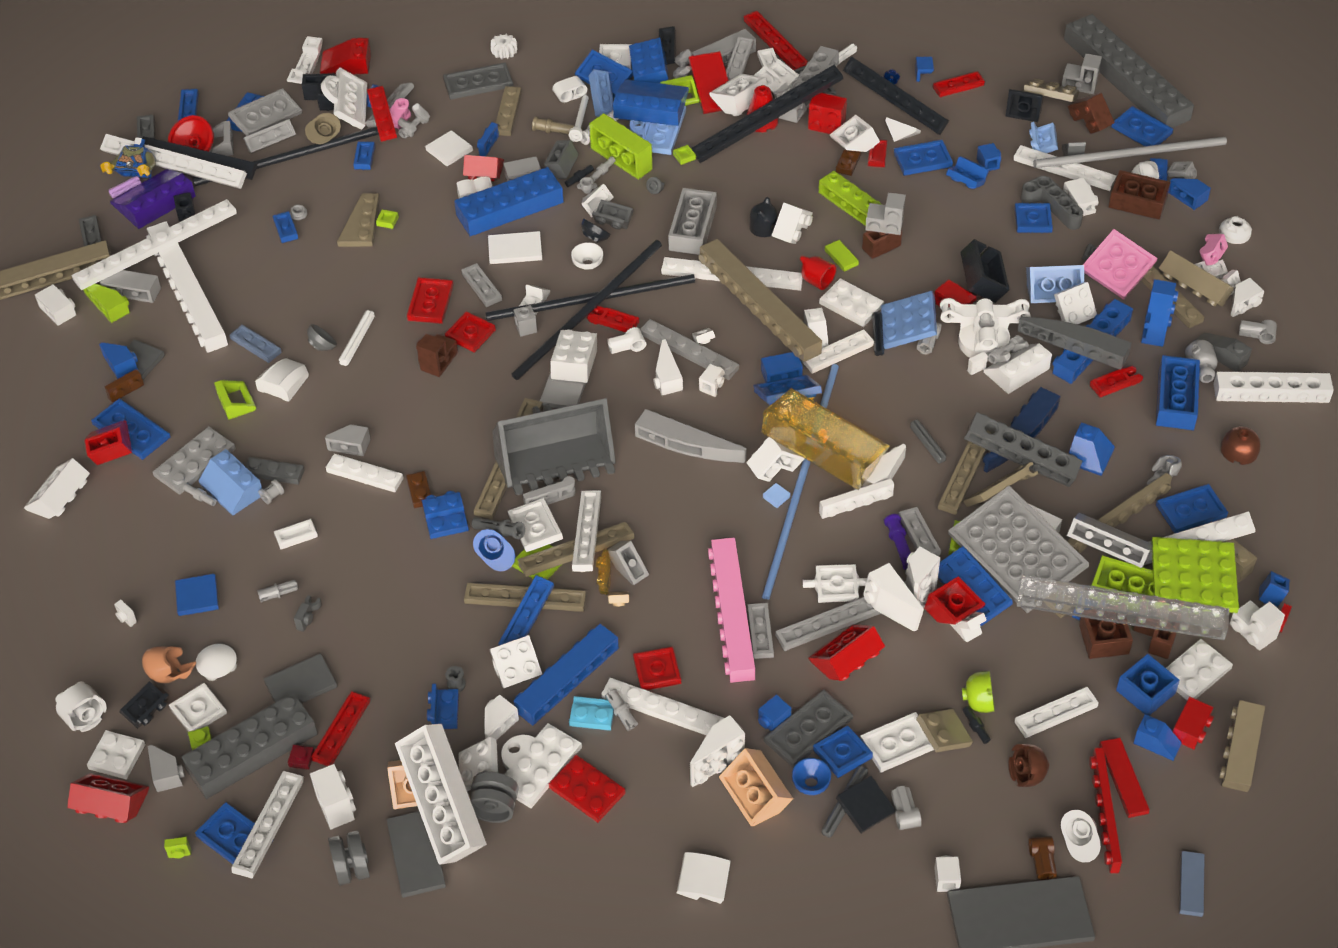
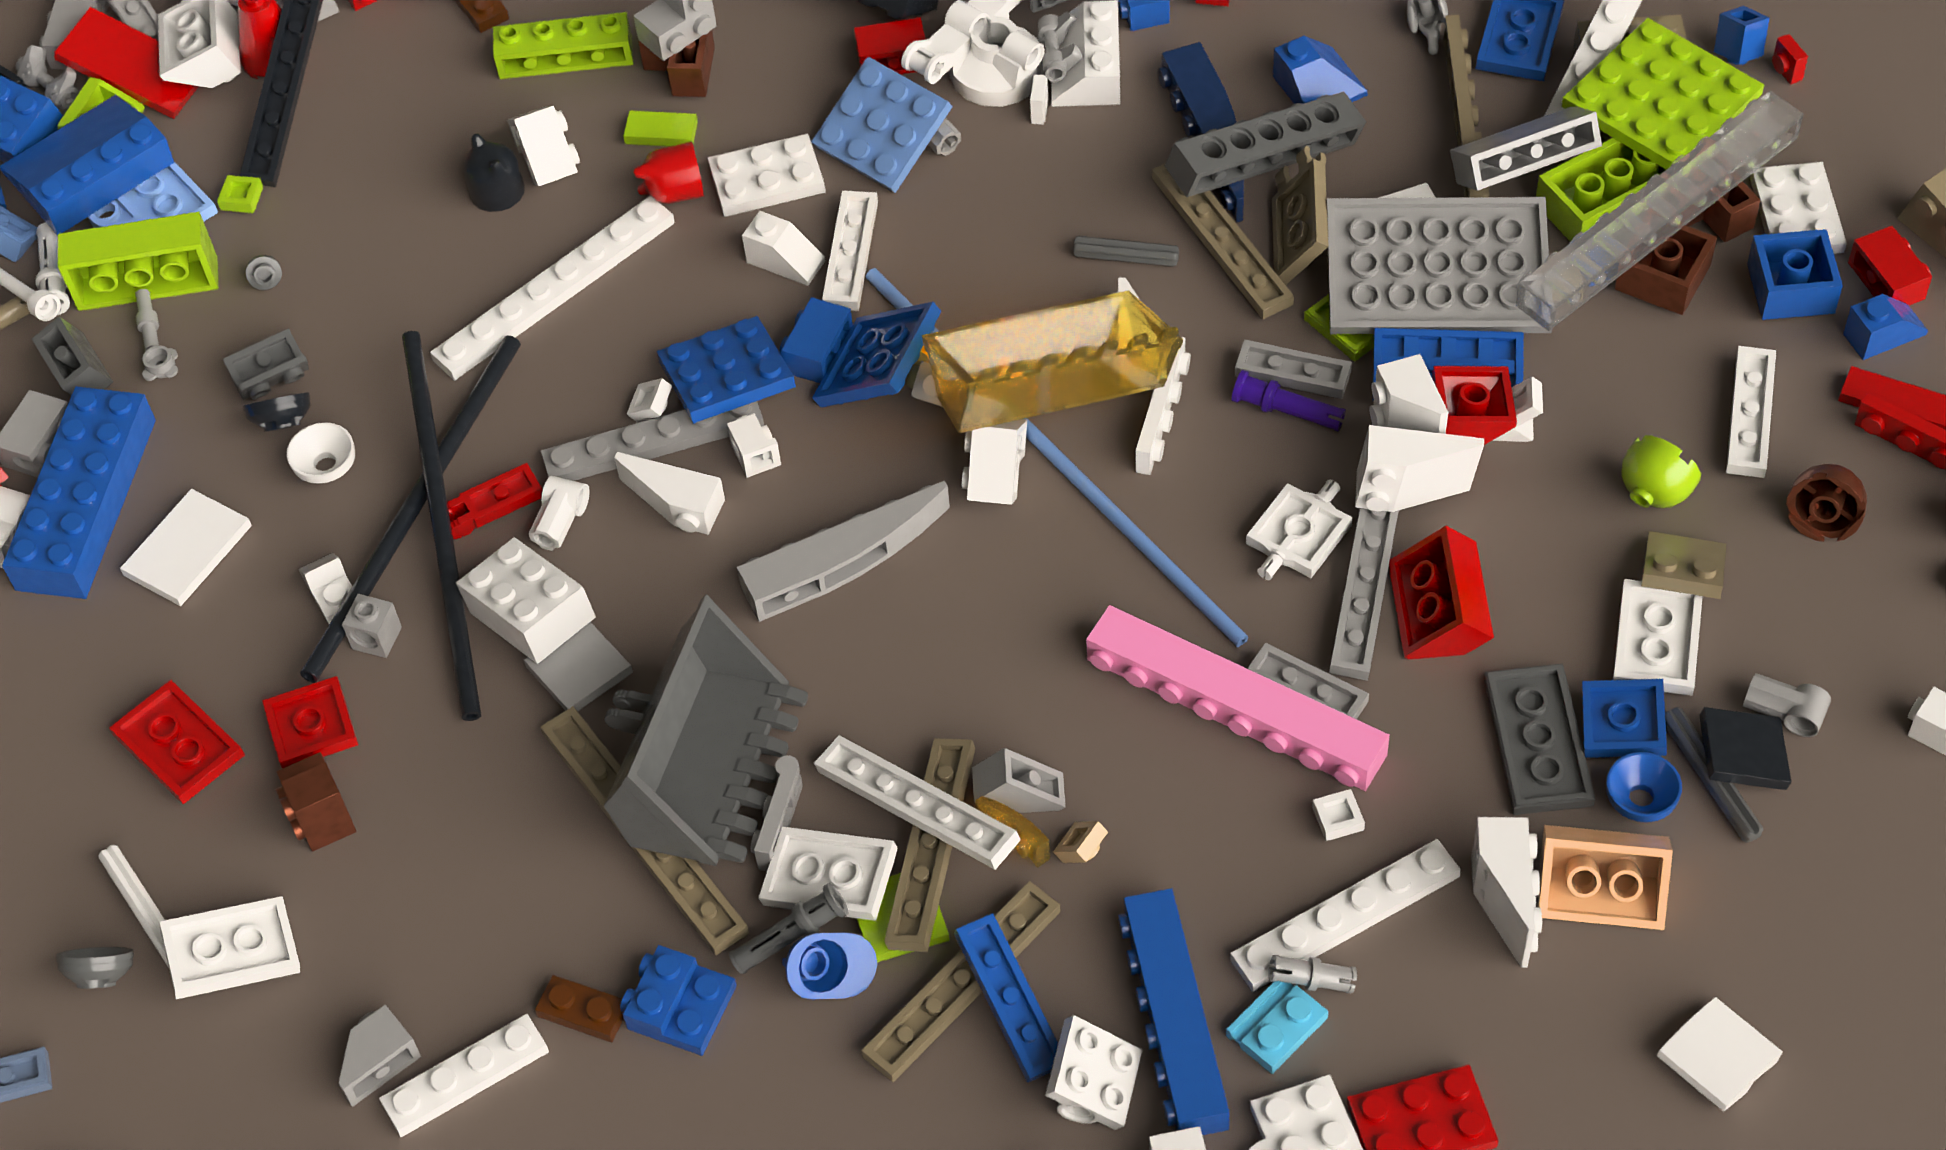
camera: 50 degrees left, 5 degrees up
(282, 379) = (119, 1084): white slope -> none
(357, 370) = (229, 947): none -> white plate
(481, 285) = (222, 644): light grey plate -> none
(577, 176) = (126, 361): black bar -> none
(592, 200) = (204, 369): white slope -> none
(657, 668) = (1261, 876): red tile -> none
(692, 220) = (402, 266): light grey brick -> none
(706, 677) = (1338, 815): none -> white plate
(739, 348) = (725, 369): none -> blue plate
(760, 300) = (664, 277): dark tan brick -> none
(773, 713) = (1484, 765): blue brick -> none
(776, 495) = (1057, 504): light blue tile -> none
(878, 333) = (861, 180): black axle -> none
(976, 724) = (1698, 521): black bar -> none
(1258, 624) = (1797, 78): white brick -> none

